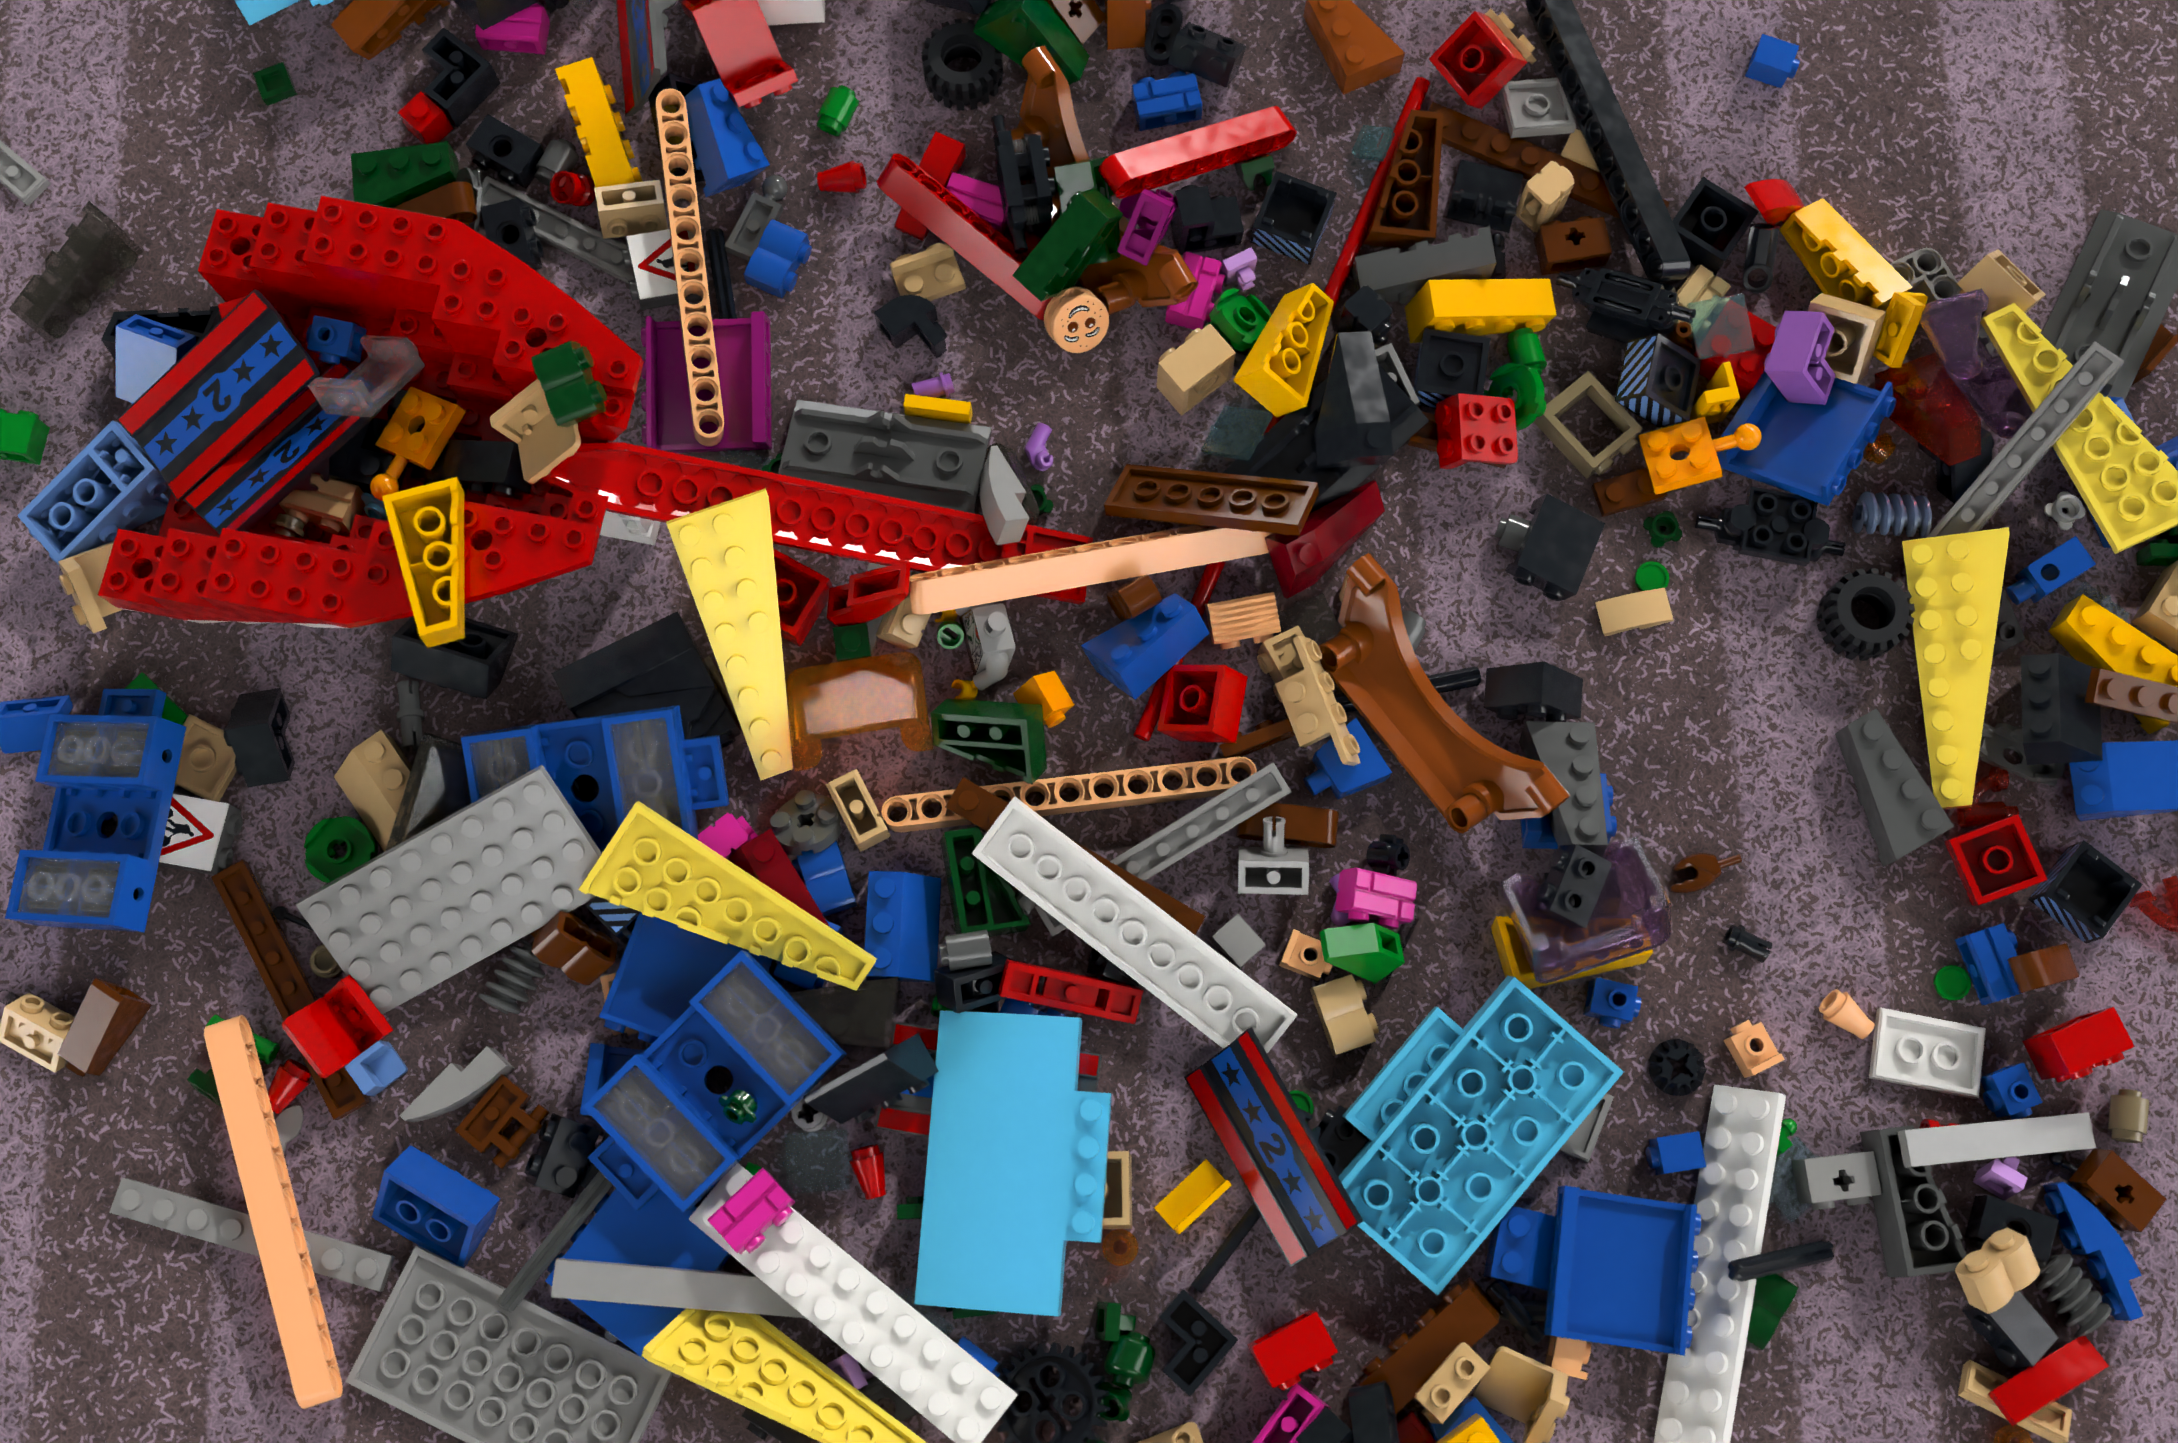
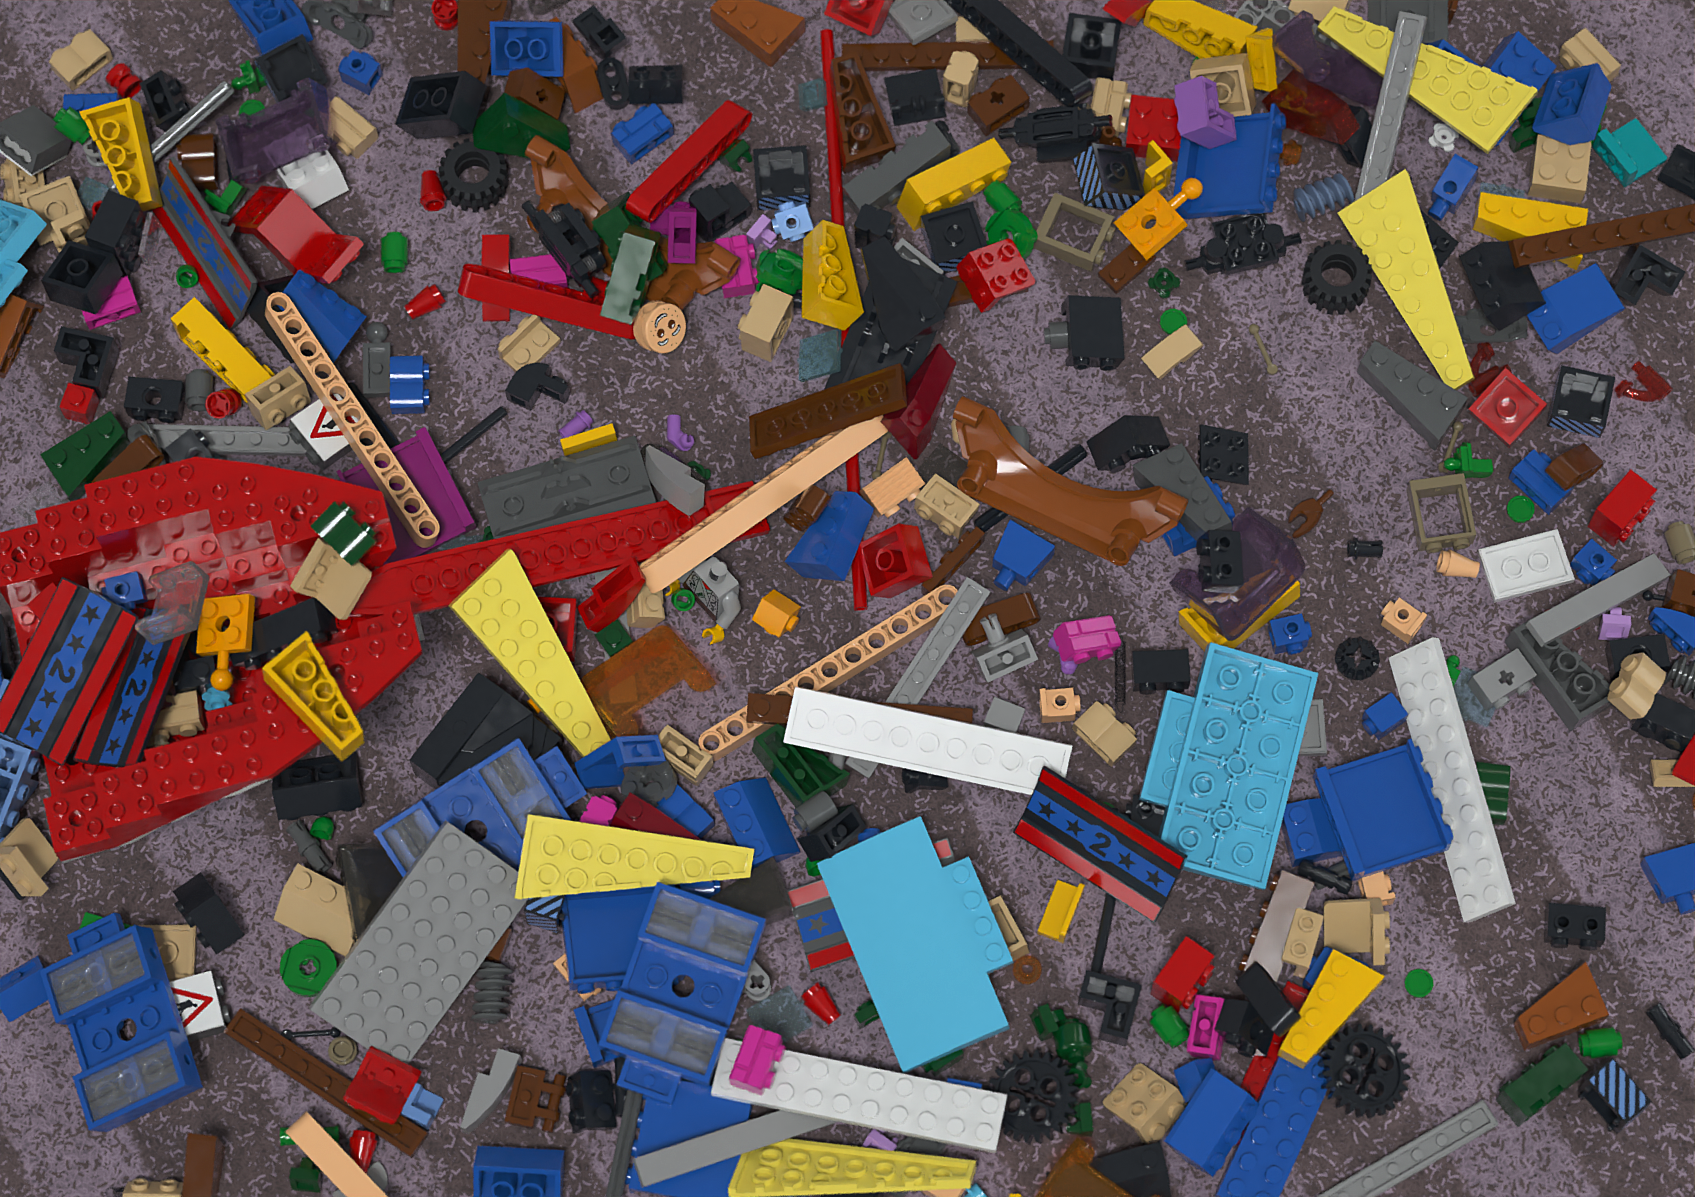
camera: 25 degrees left, 5 degrees down
(437, 701) = (322, 828): none -> green hinge
(574, 948) = (526, 949): reddish brown brick -> none
(606, 36) = (184, 279): none -> green hinge
(739, 1107) = (710, 993): dark green plate -> none
(778, 782) = (605, 765): none -> blue panel
(819, 346) = (473, 434): none -> black bar
(875, 1082) = (796, 934): black slope -> none
(909, 64) = (432, 193): none -> red cone
(994, 732) = (753, 653): dark green wedge -> none
(1070, 991) = (903, 807): red hinge -> none
(1233, 594) = (877, 472): none -> dark tan hinge
(1249, 1397) = (1169, 1026): none -> green brick
(1292, 265) = (799, 213): none -> light blue brick
(1312, 704) = (974, 524): tan bracket -> none
(1363, 950) = (1096, 679): green slope -> none
(1388, 855) = (1081, 605): black gear -> none
(1442, 974) = (1160, 671): none -> black brick
(1636, 757) = (1223, 454): none -> black hinge
(1721, 326) = (1135, 117): clear light blue piece -> none
(1739, 683) = (1271, 368): none -> dark tan hinge
(1760, 255) = (1138, 51): black piece -> none
(1780, 1260) = (1488, 751): black axle -> none
(1870, 912) = (1437, 487): none -> dark tan window
(1886, 889) = (1457, 426): none -> dark tan hinge
(1911, 901) = (1465, 464): none -> green piece

